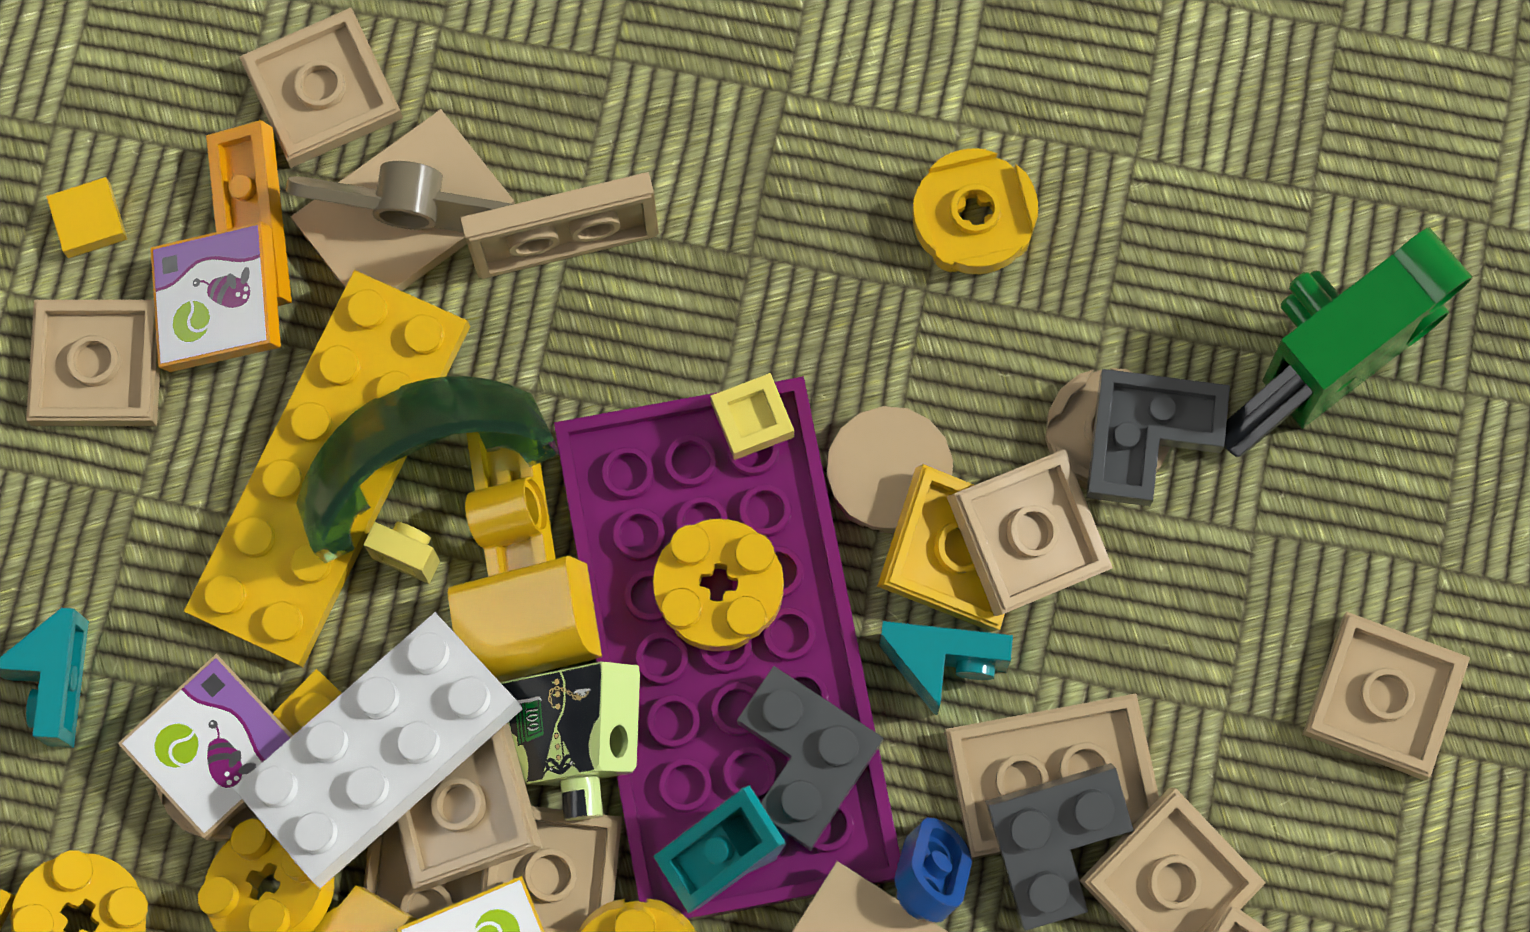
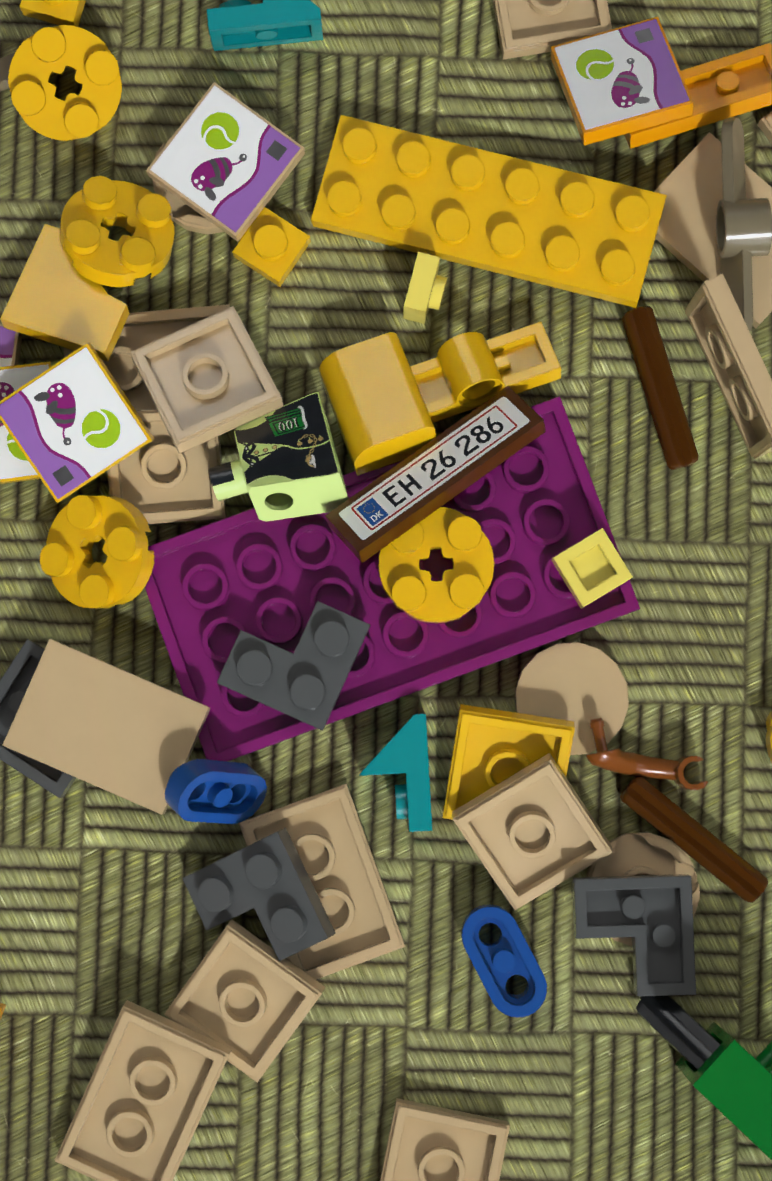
camera: 80 degrees right, 10 degrees up
(377, 749) = (239, 298): white plate -> none
(402, 425) = (530, 265): clear green windscreen -> none
(562, 317) = (660, 387): none -> reddish brown axle
(618, 565) = (435, 474): none -> tile
(720, 849) = (197, 604): teal slope -> none
(974, 407) = (639, 765): none -> dark orange piece
(1062, 365) = (694, 839): none -> reddish brown axle
(1163, 588) = (503, 959): none -> blue plate

